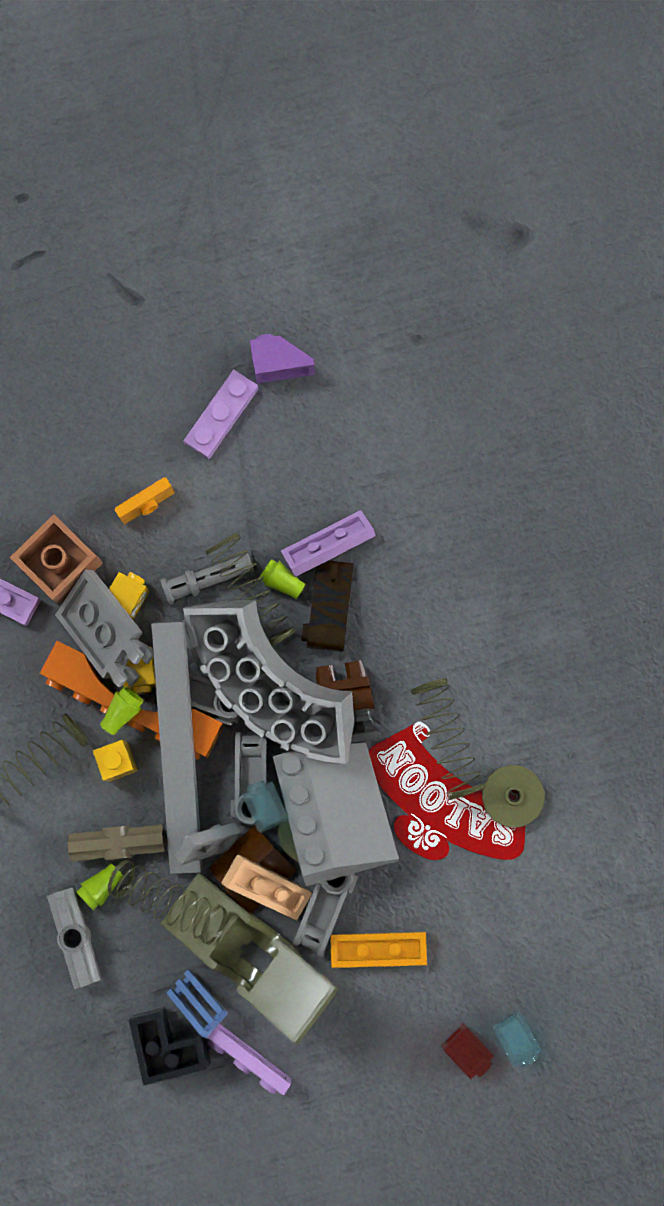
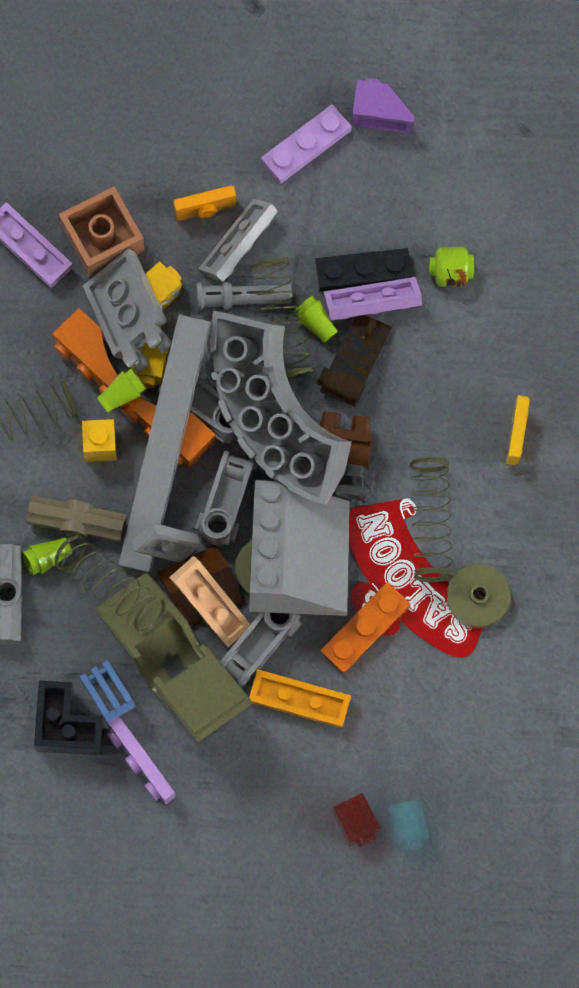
camera: 10 degrees right, 5 degrees down
(186, 526) = (238, 240): none -> light grey plate
(264, 806) = (233, 522): clear light blue brick -> none
(310, 517) = (362, 269): none -> black plate
(391, 489) = (451, 266): none -> lime head
(418, 861) = (365, 628): none -> orange plate
(500, 627) = (517, 430): none -> yellow tile

